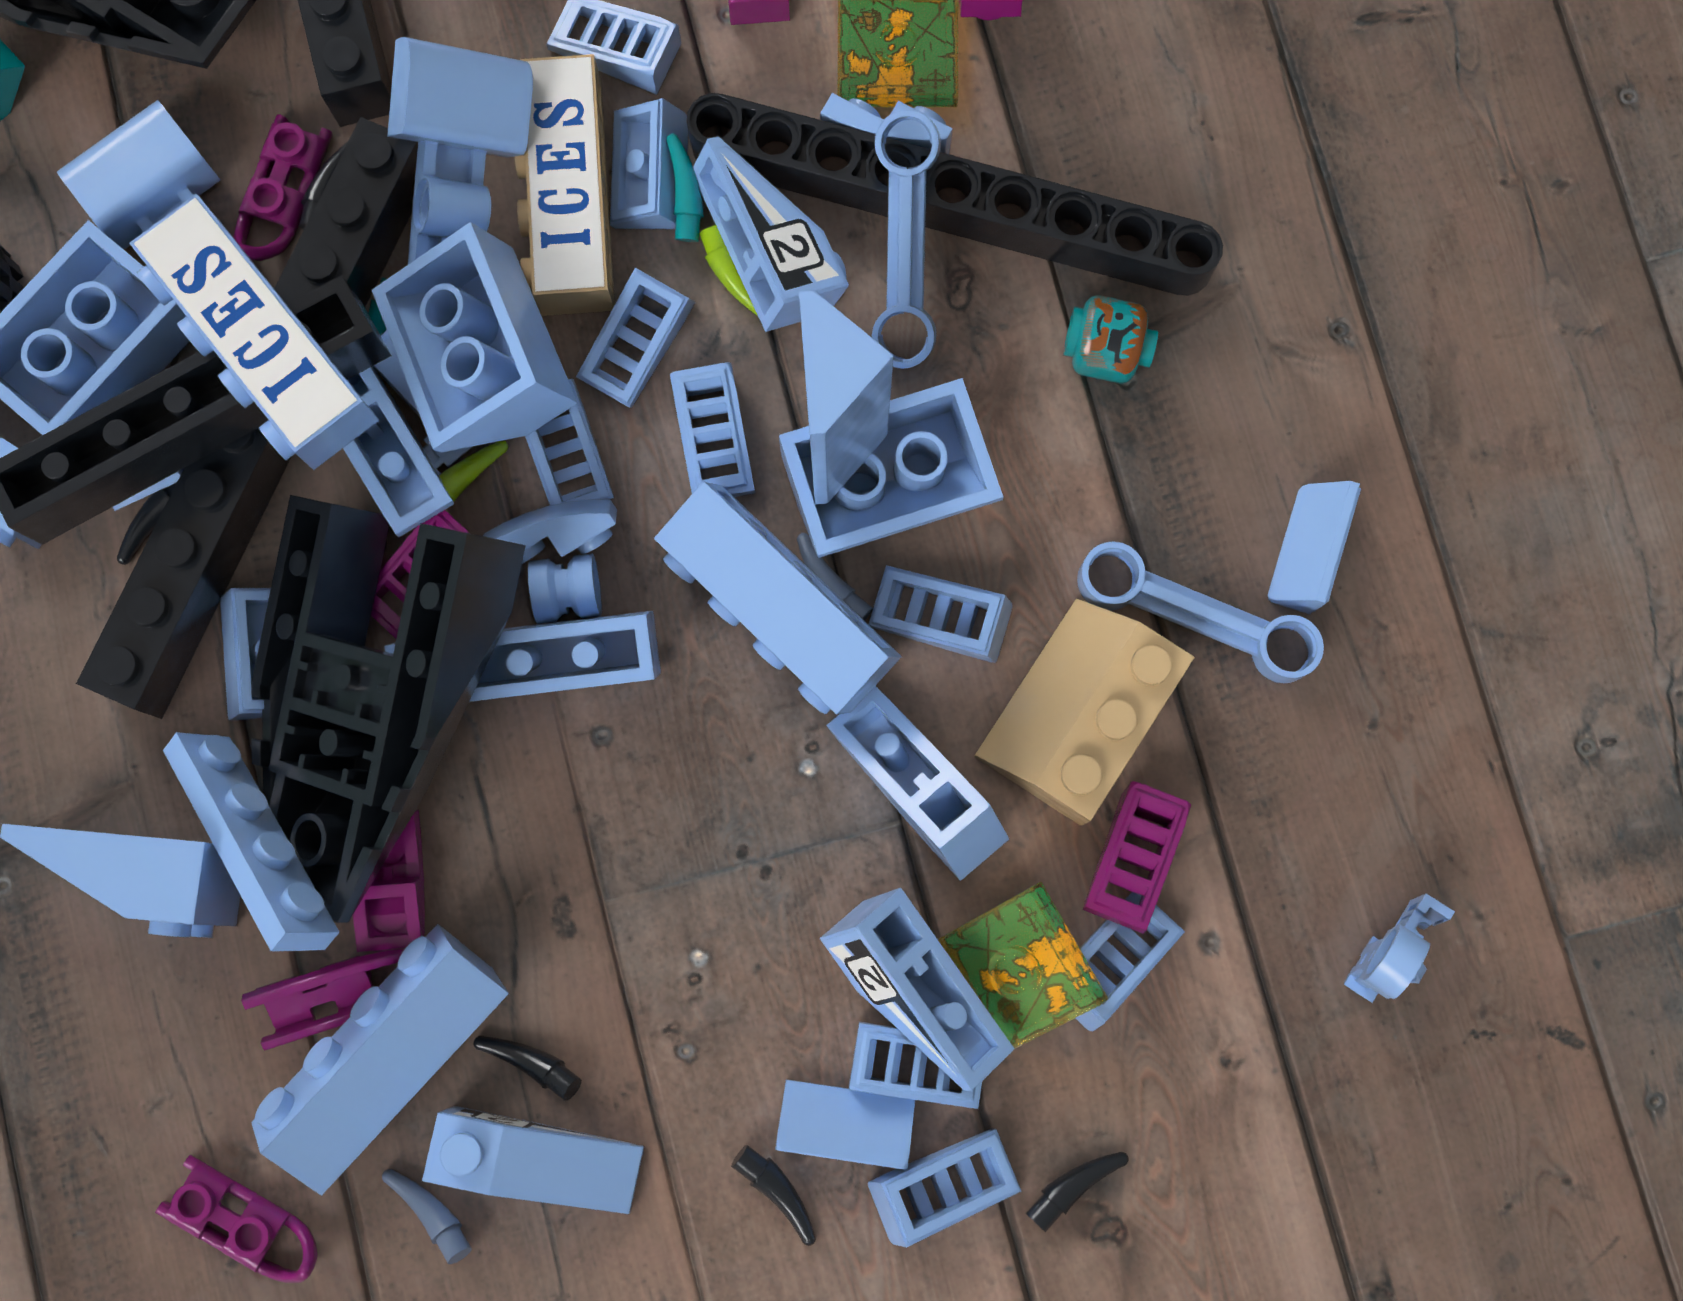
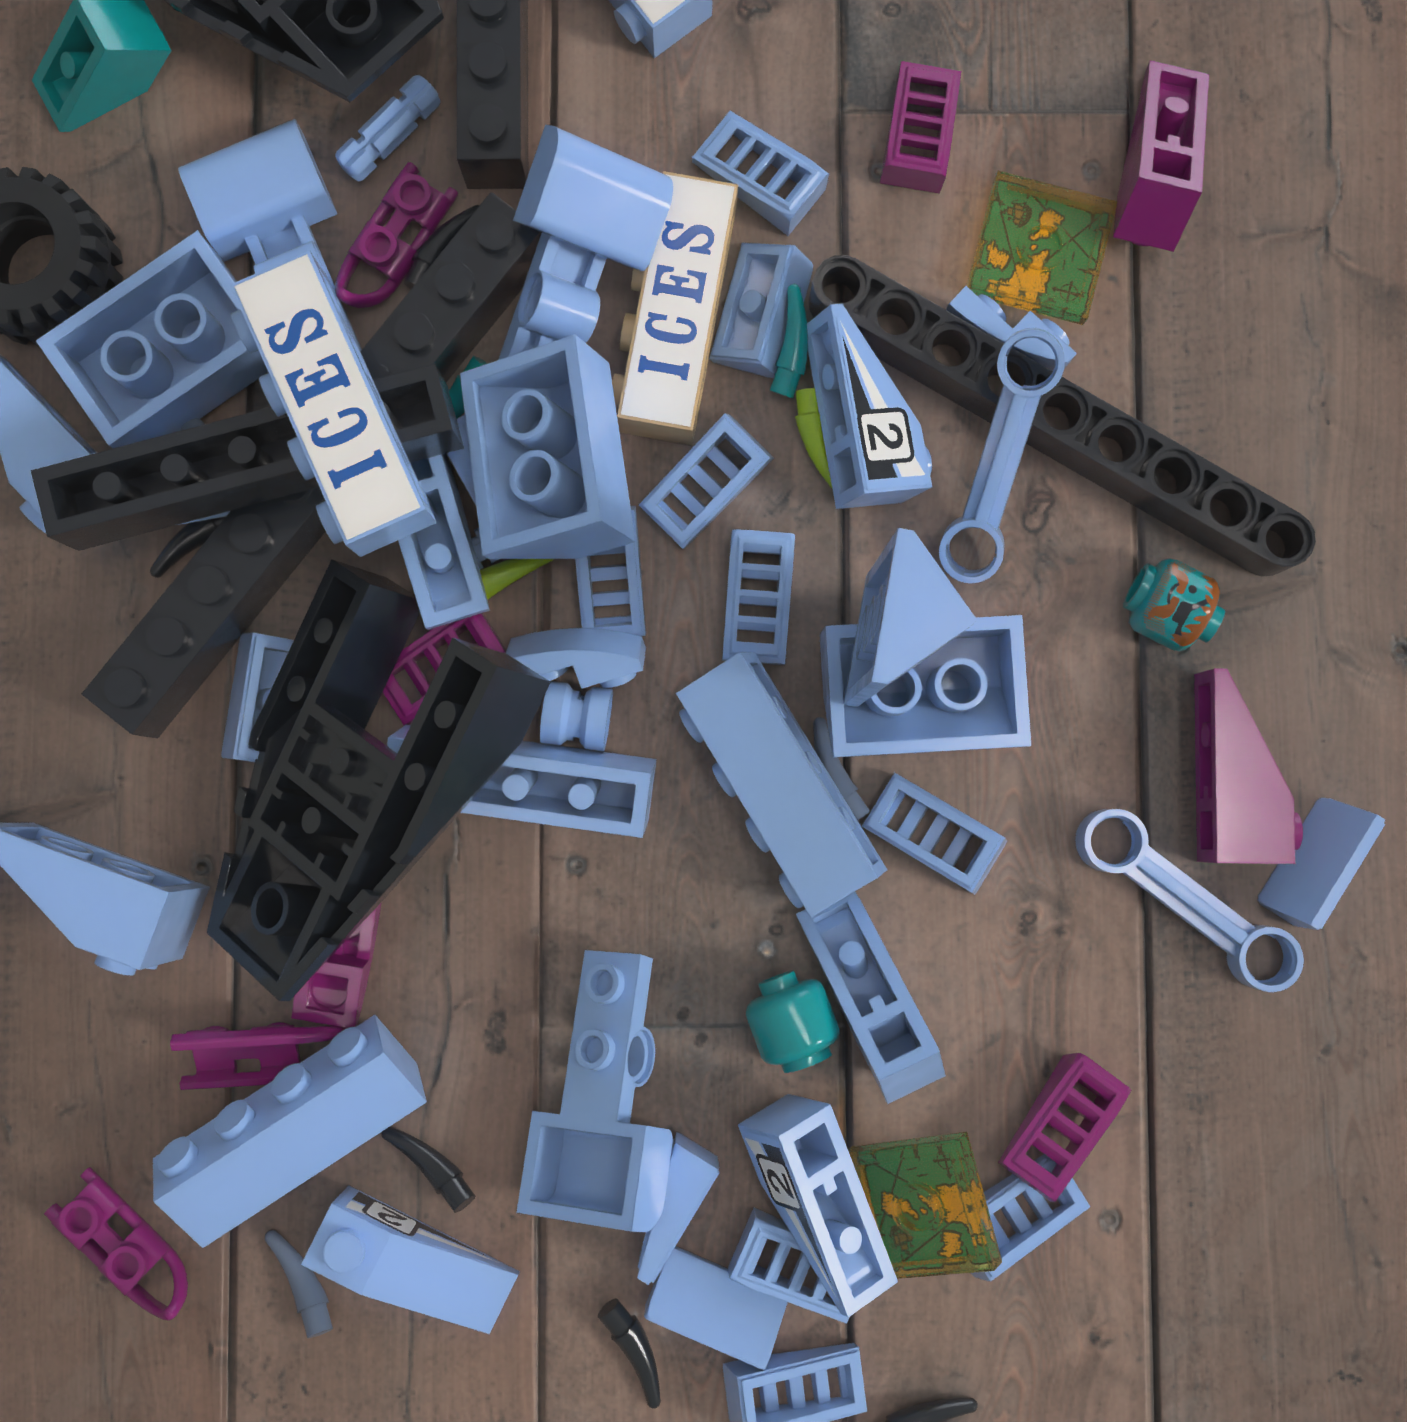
camera: 10 degrees right, 5 degrees up
(249, 88) = (388, 128): none -> light blue axle
(251, 843) = (213, 897): light blue plate -> none
(685, 1000) = (589, 1157): none -> light blue plate
(780, 1017) = (689, 1180): none -> light blue slope
(847, 824) = (792, 1022): none -> teal head
(1084, 709) = (1052, 967): tan slope -> none
(1218, 493) = (1240, 793): none -> slope
(1398, 958) = (1292, 1300): light blue piece -> none

